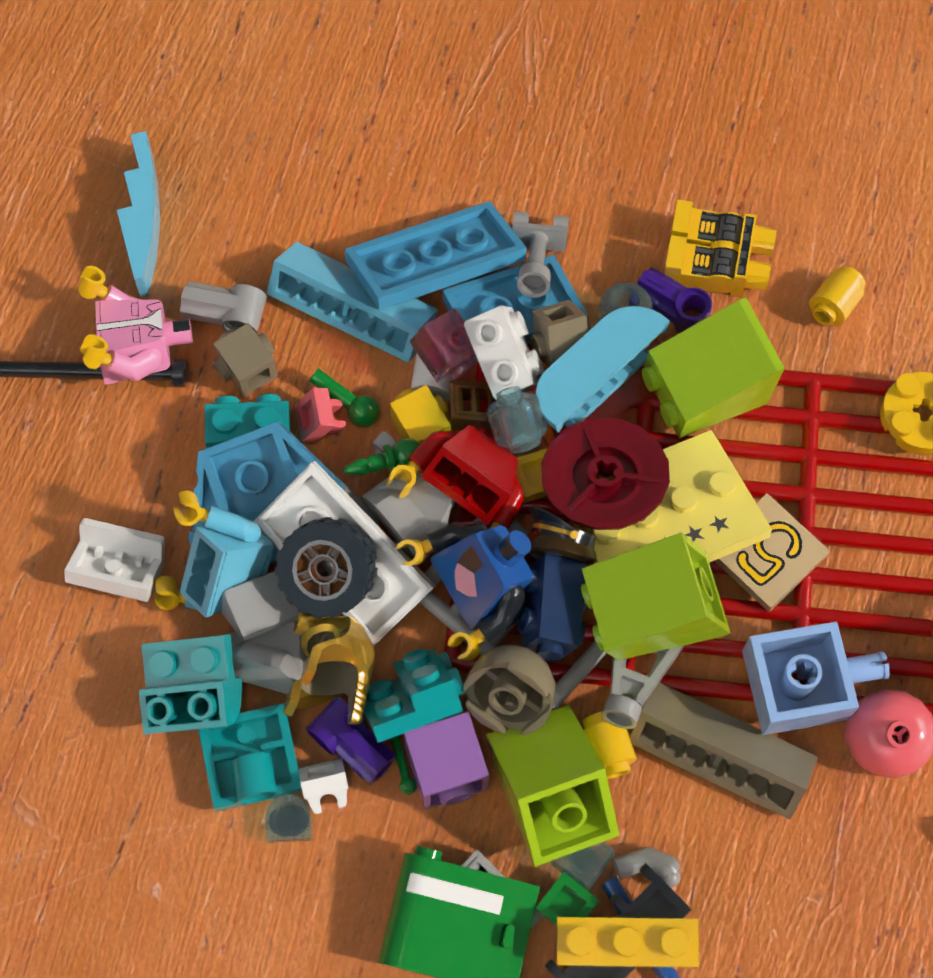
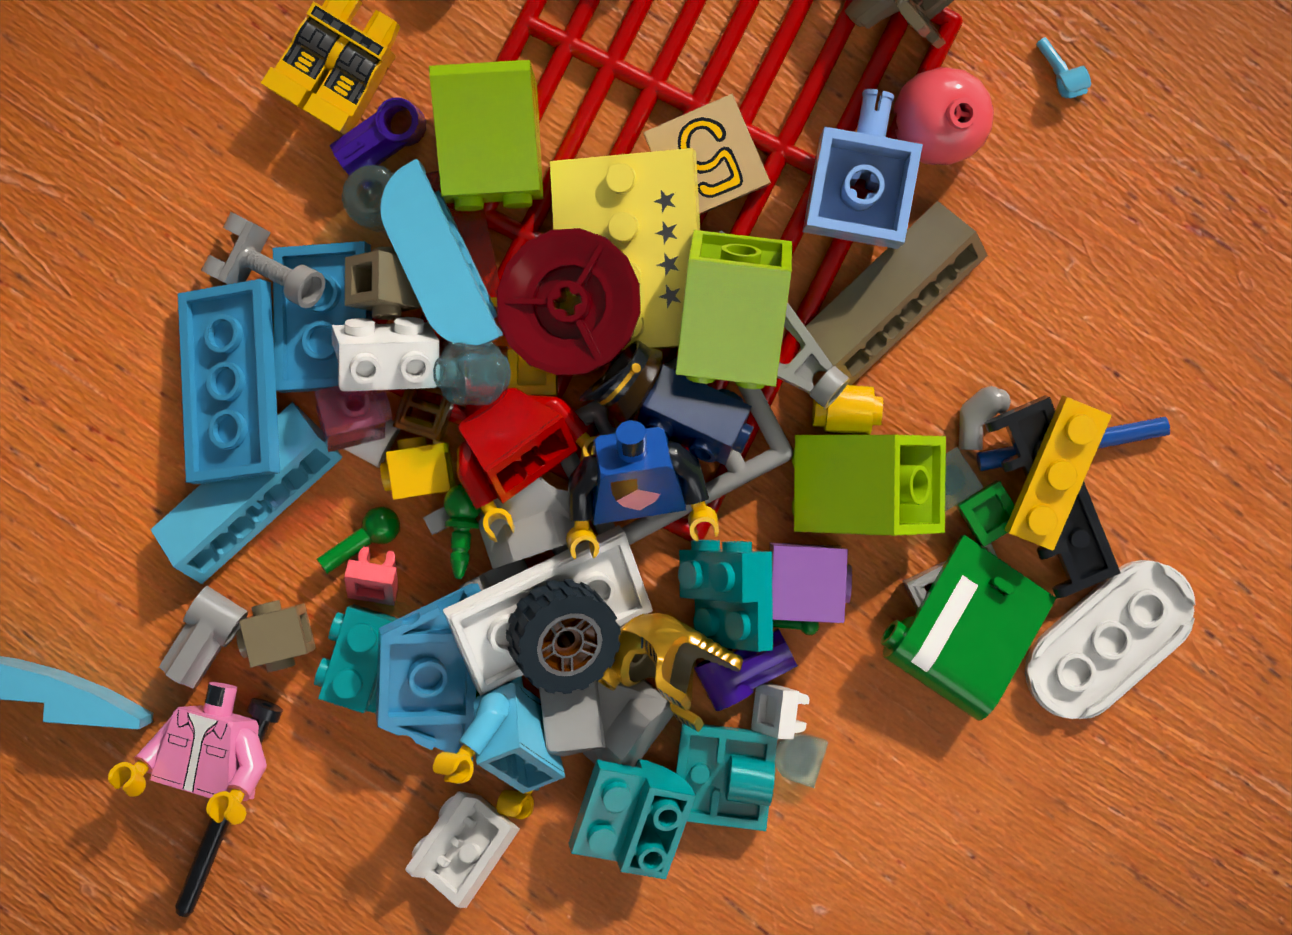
camera: 70 degrees left, 20 degrees up
(510, 689) = (763, 492): dark tan cylinder -> none

